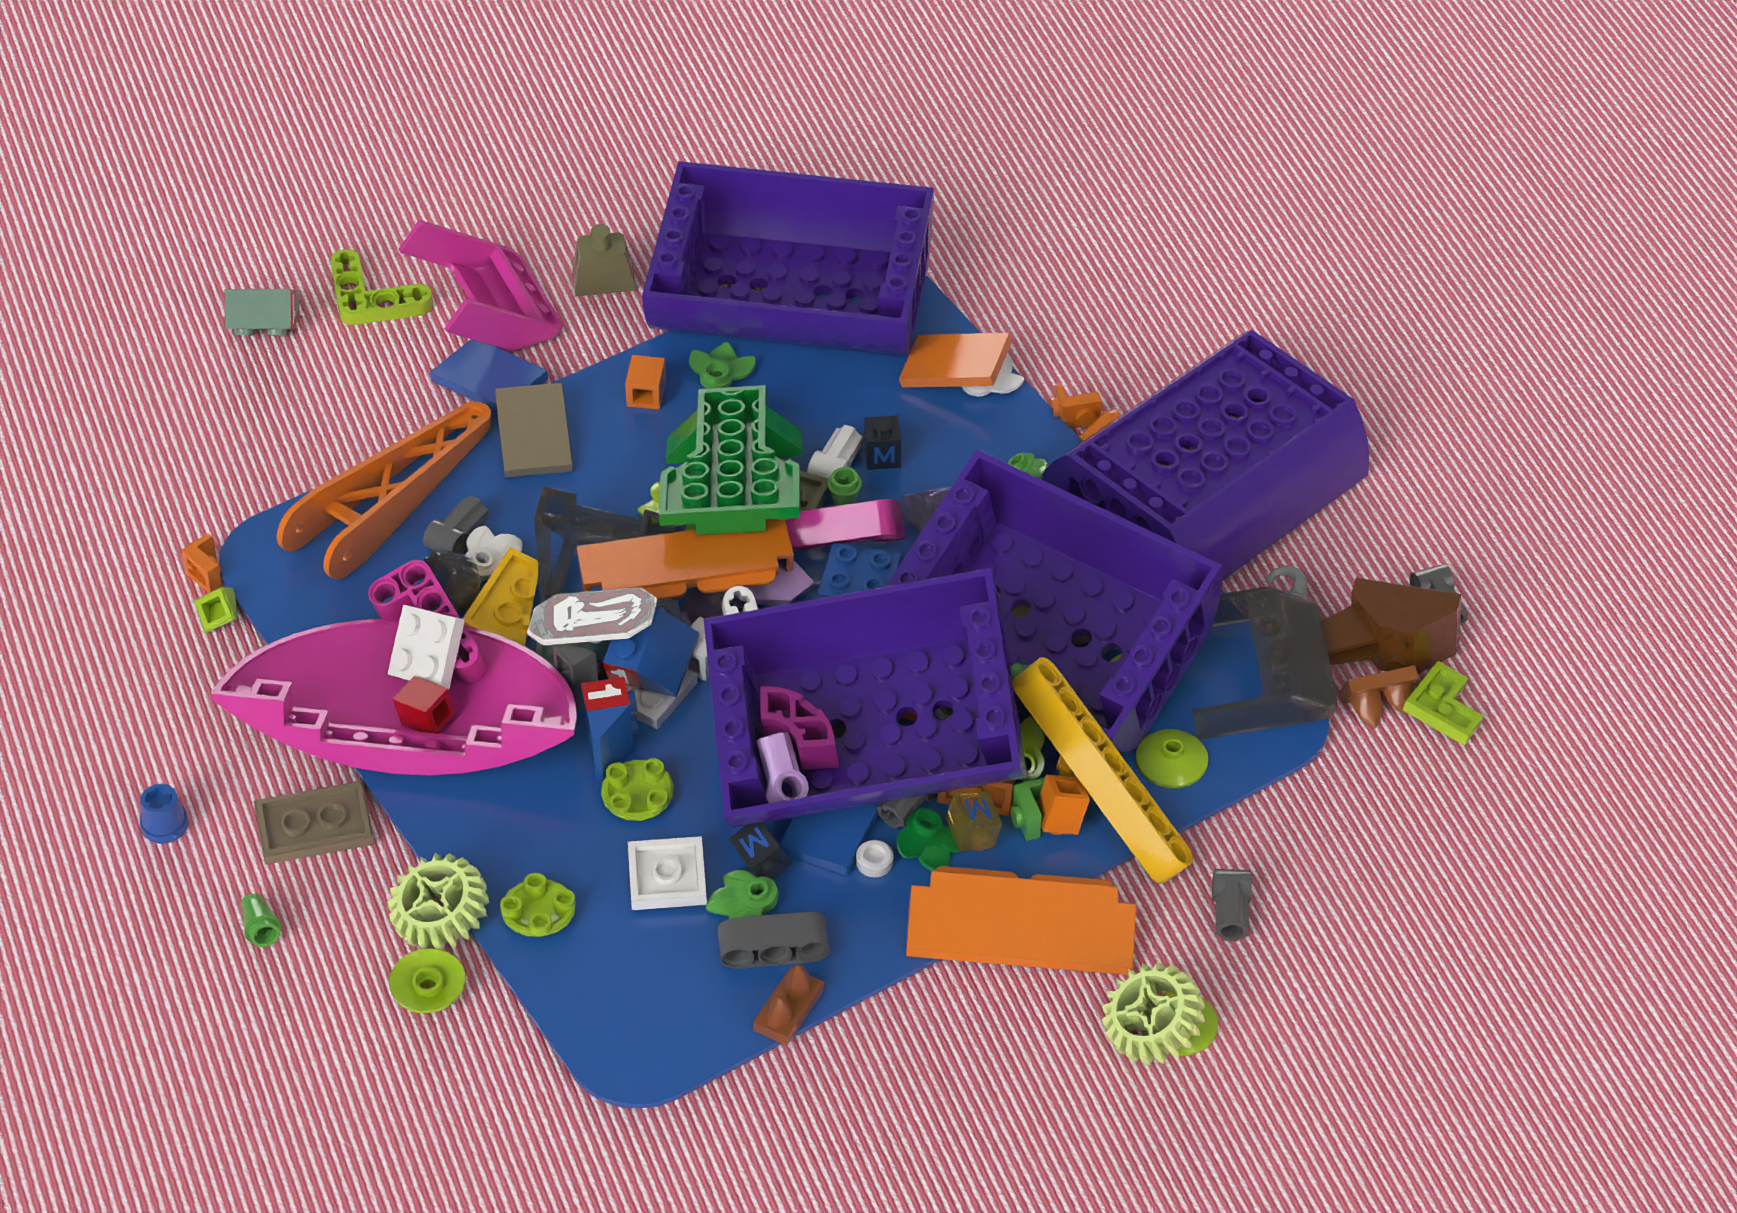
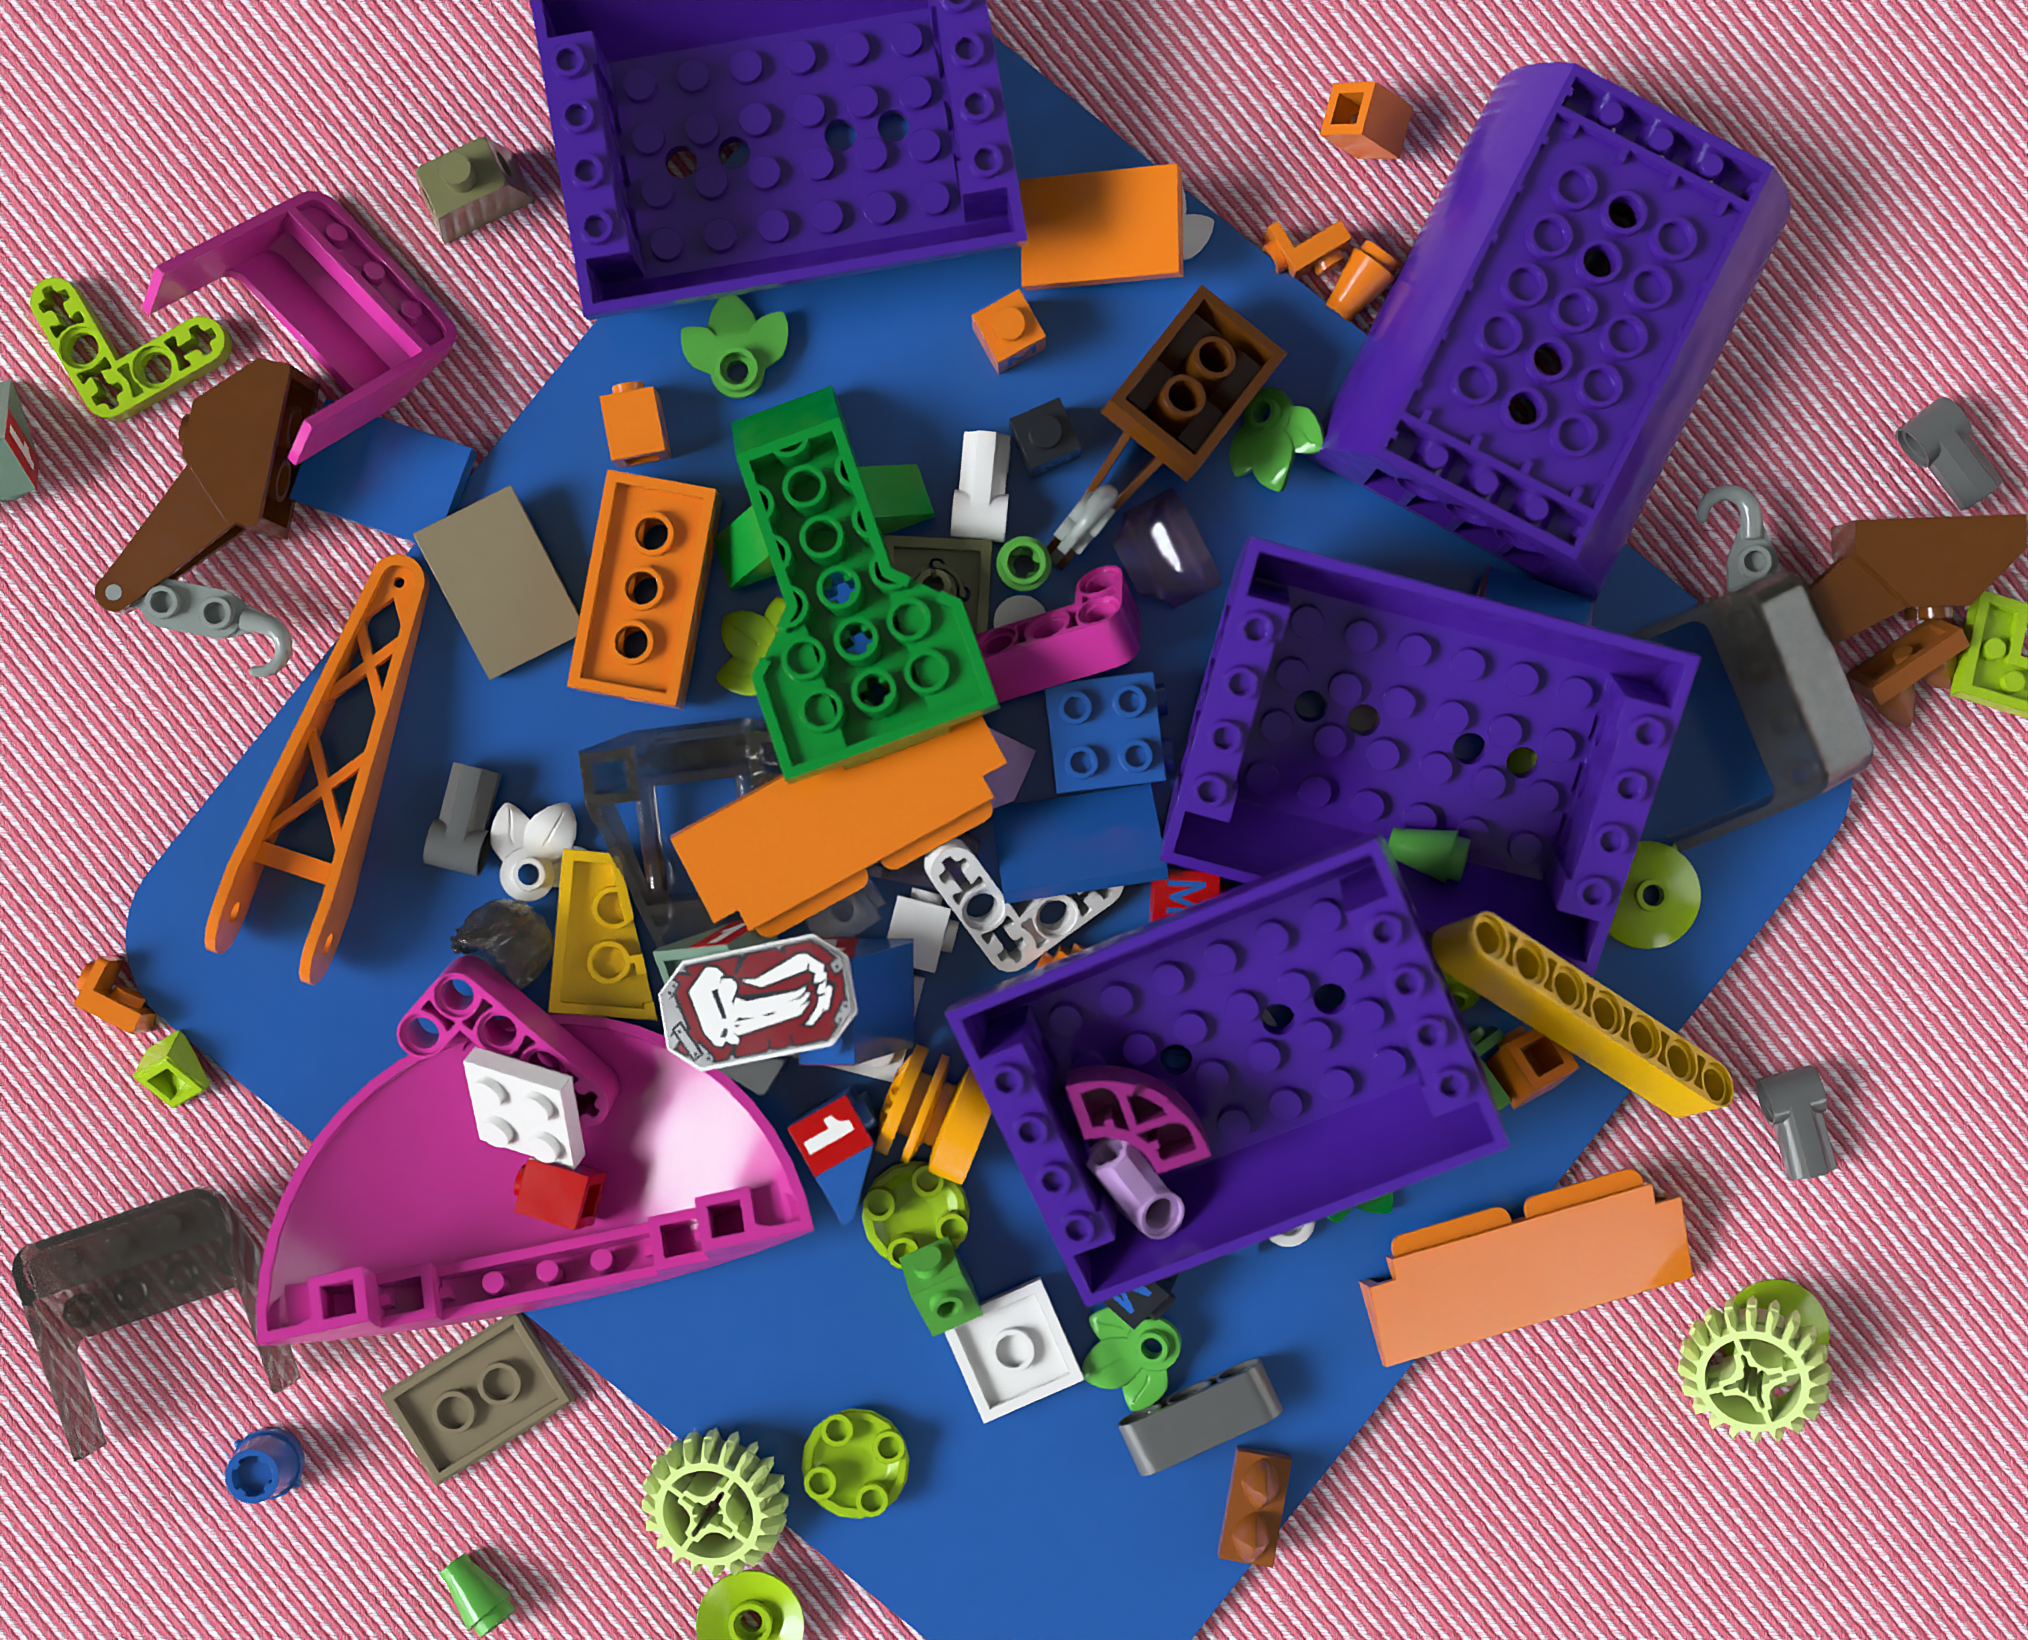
camera: 20 degrees left, 40 degrees up
(141, 689) = (127, 1272): none -> clear smoke windscreen
(403, 350) = (231, 484): none -> reddish brown slope
(616, 446) = (619, 563): none -> orange brick
(636, 816) = (940, 1286): none -> bright green brick
(673, 726) = (934, 1114): none -> light orange wheel
(882, 391) = (1008, 331): none -> orange brick
(956, 428) = (1175, 406): none -> reddish brown slope
(1131, 358) = (1366, 120): none -> orange brick

